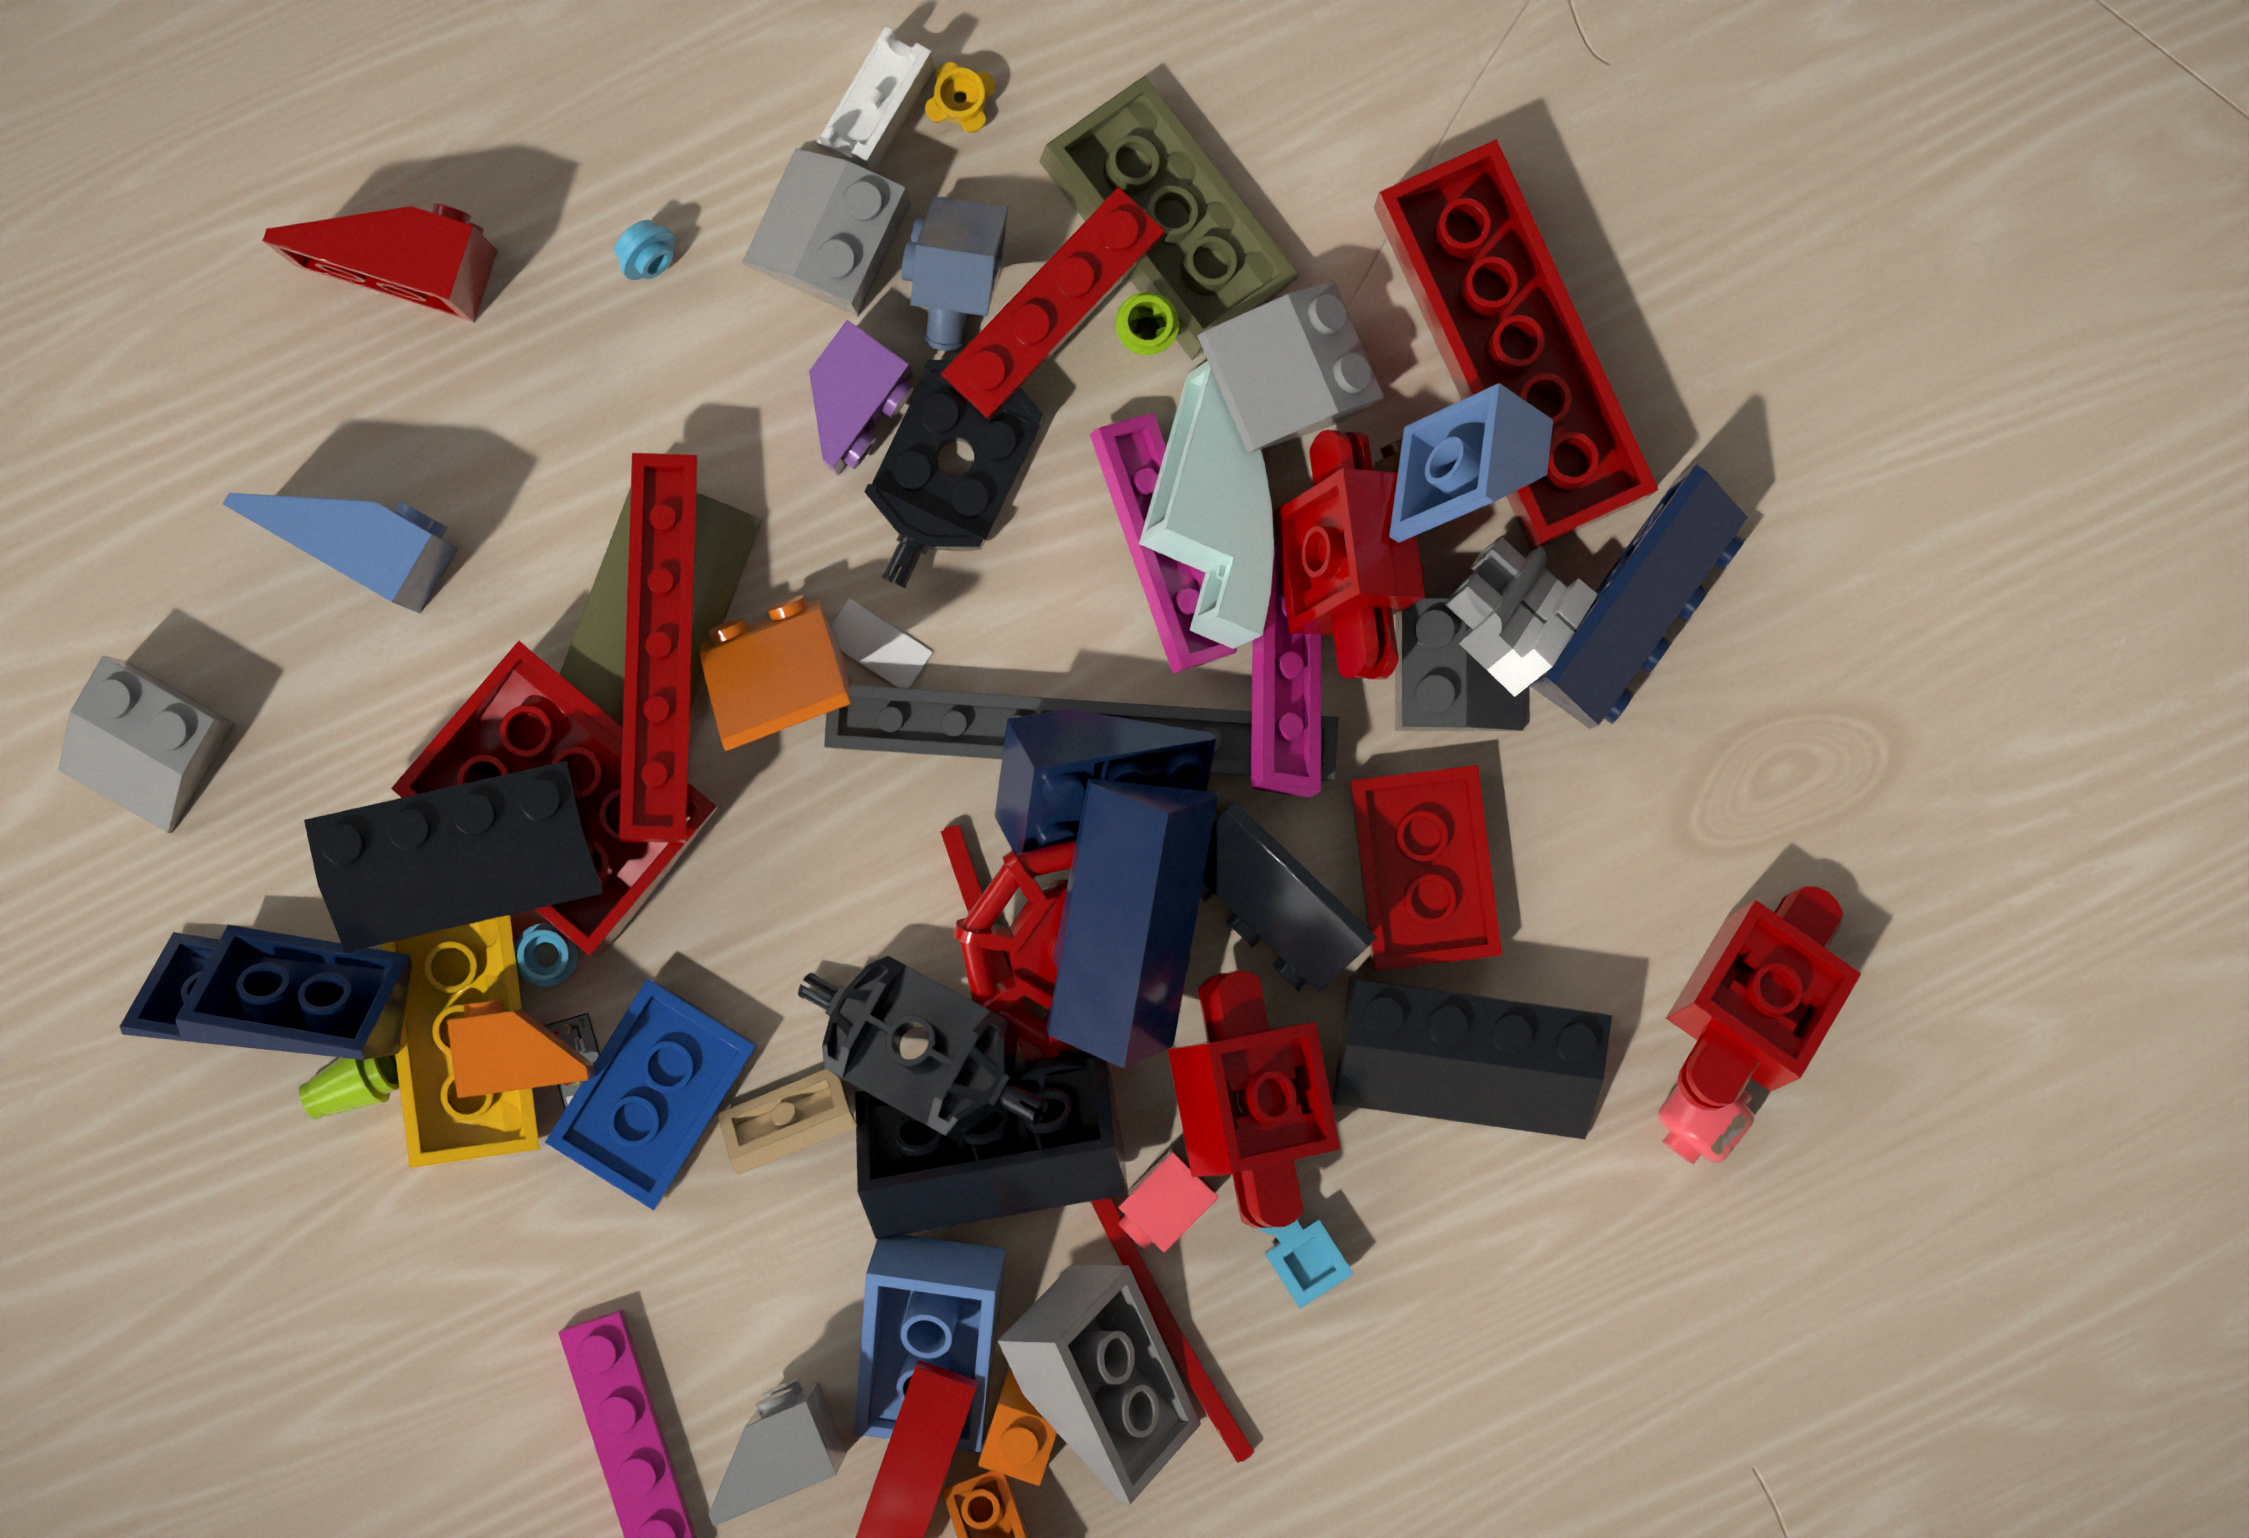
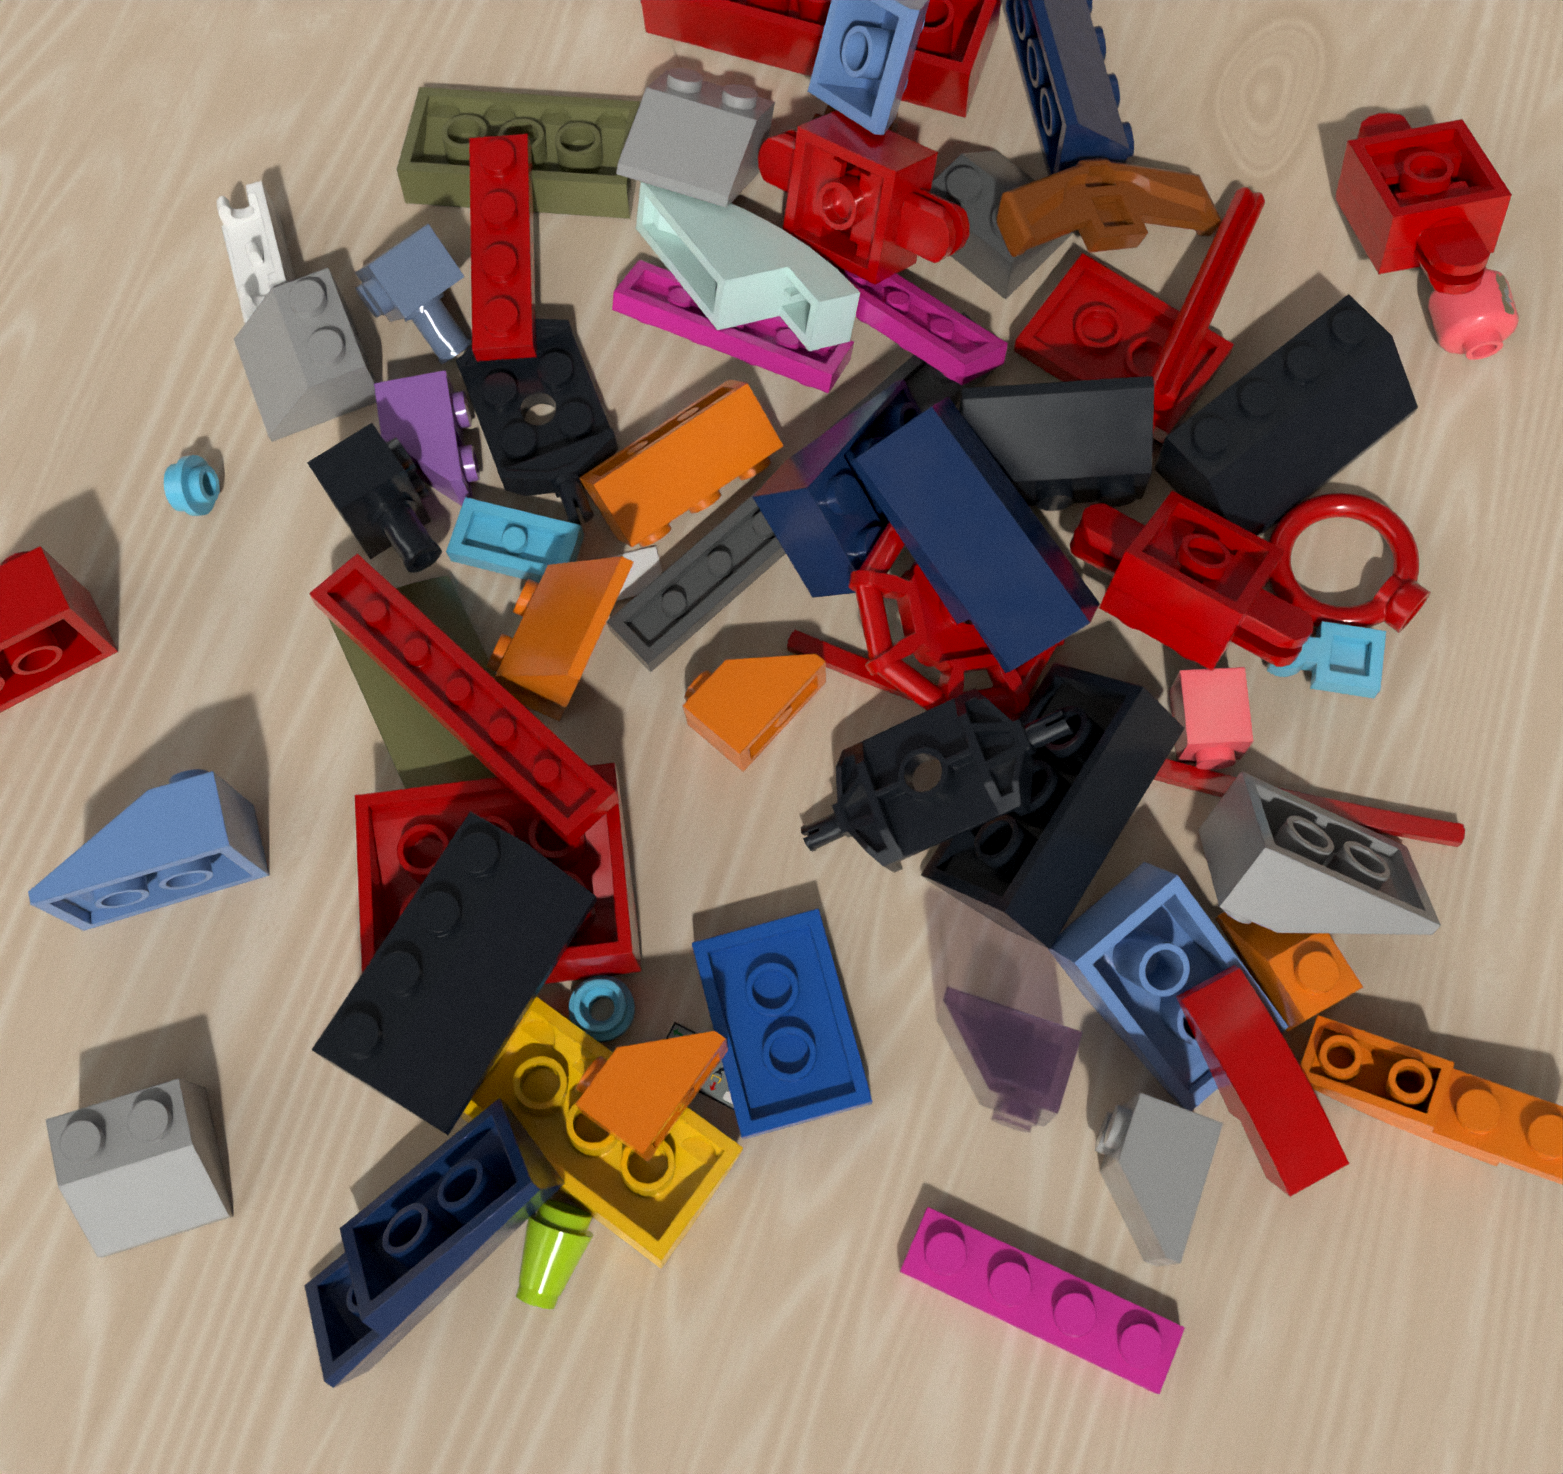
camera: 35 degrees left, 15 degrees down
(764, 417) = (378, 496): none -> black brick
(764, 1284) = (1009, 1058): none -> clear purple slope
(786, 1120) = (896, 938): tan plate -> none
(830, 548) = (511, 540): none -> medium azure plate
(863, 849) = (751, 701): none -> orange slope
(957, 79) = (304, 198): yellow plate -> none
(1004, 619) = (683, 464): none -> orange brick
(1150, 309) = (578, 206): lime cone -> none
(1393, 1258) = (1398, 597): none -> red piece
(1519, 898) = (1205, 296): none -> red axle
(1523, 620) = (1006, 132): light grey hips -> none
(1526, 751) = (1106, 206): none -> dark orange plate

